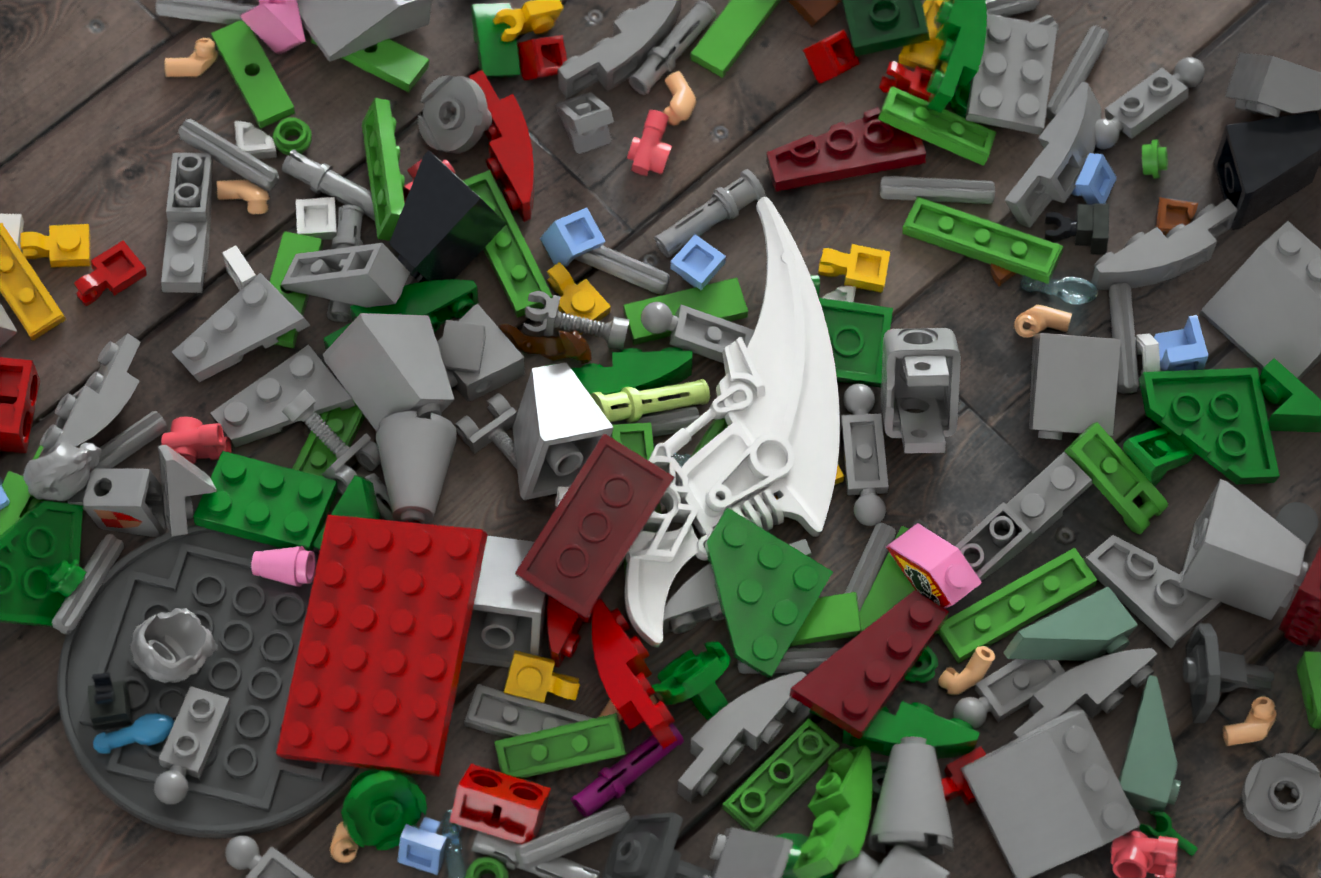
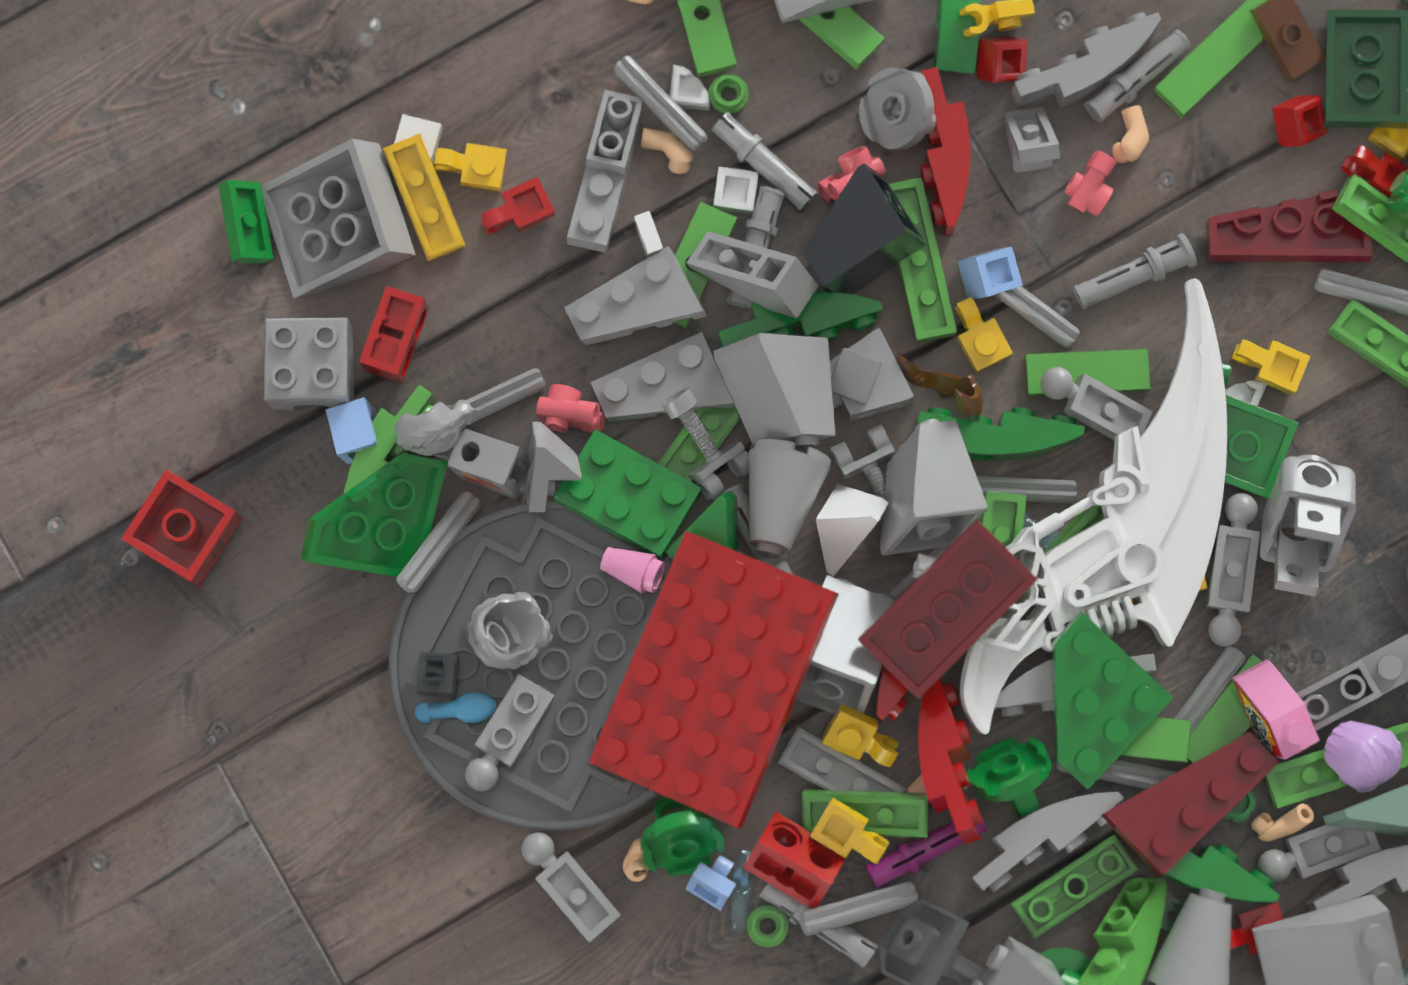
camera: 15 degrees right, 15 degrees up
(66, 577) = (419, 535): green plate -> none
(98, 401) = (472, 363): light grey slope -> none
(383, 167) = (814, 156): bright green plate -> none
(482, 484) = (845, 523): none -> white slope
(542, 763) = (842, 830): none -> yellow plate
(551, 318) = (1010, 383): light grey bar -> none
(635, 403) = (1012, 470): yellowish green pin -> none
(697, 262) = (1111, 327): light blue tile -> none
(1027, 587) = (1363, 755): none -> lavender hair

